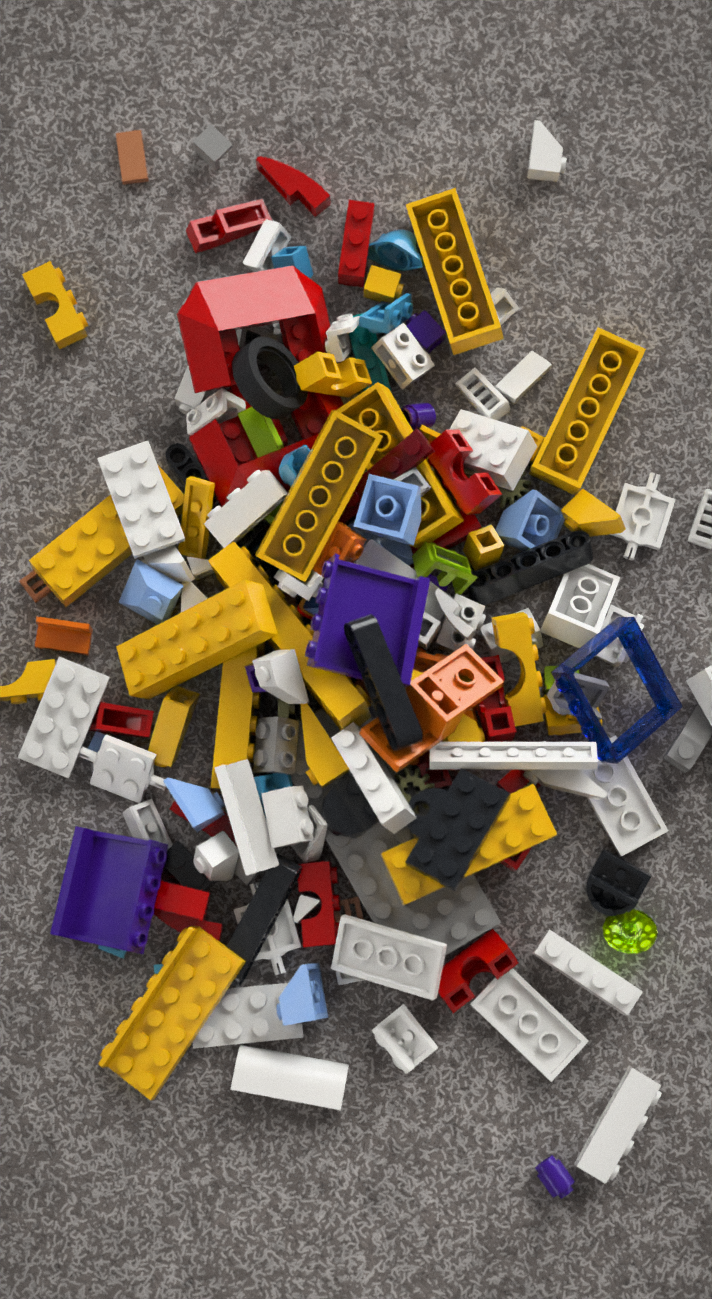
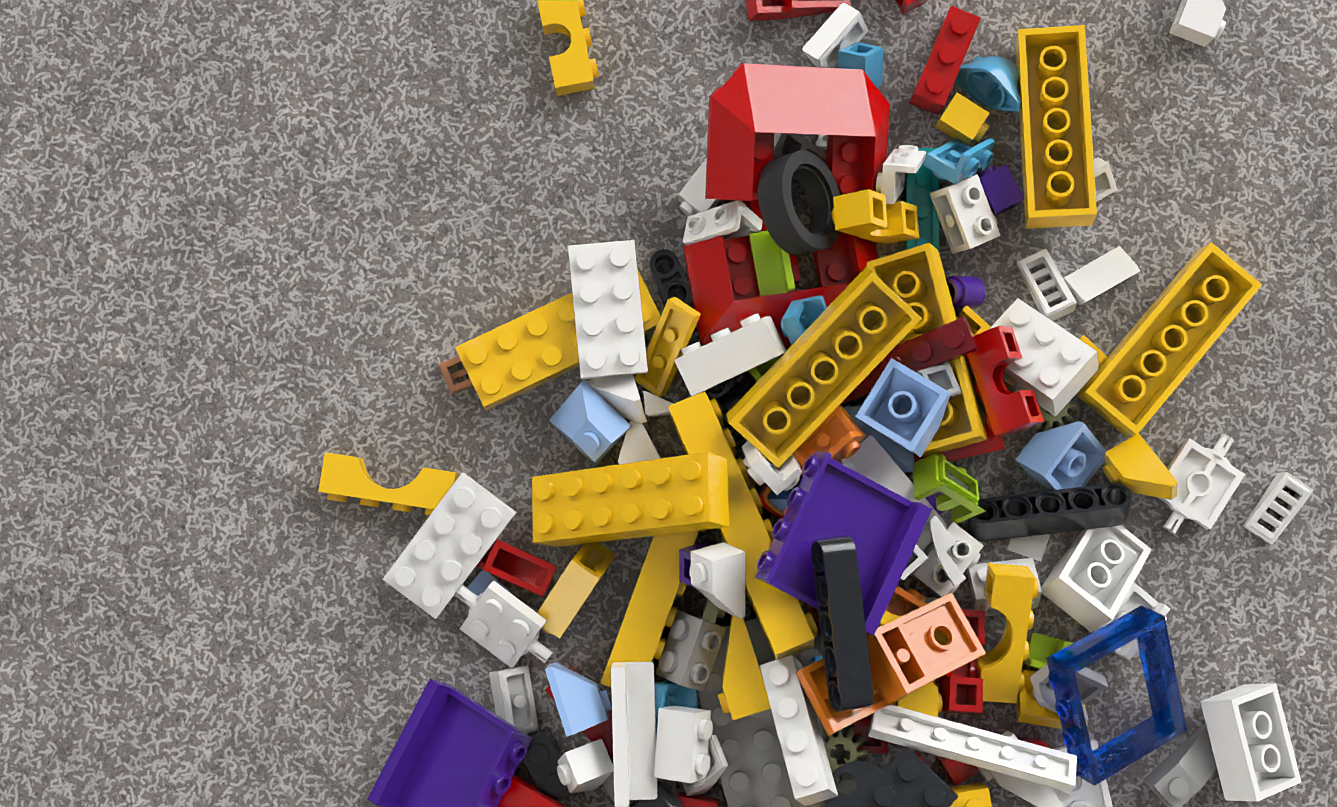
camera: 15 degrees right, 5 degrees up
(63, 635) = (473, 445): orange panel -> none
(348, 809) = (756, 752): black slope -> none
(483, 547) = (999, 473): yellow brick -> none
(524, 599) = (1029, 546): none -> white sticker

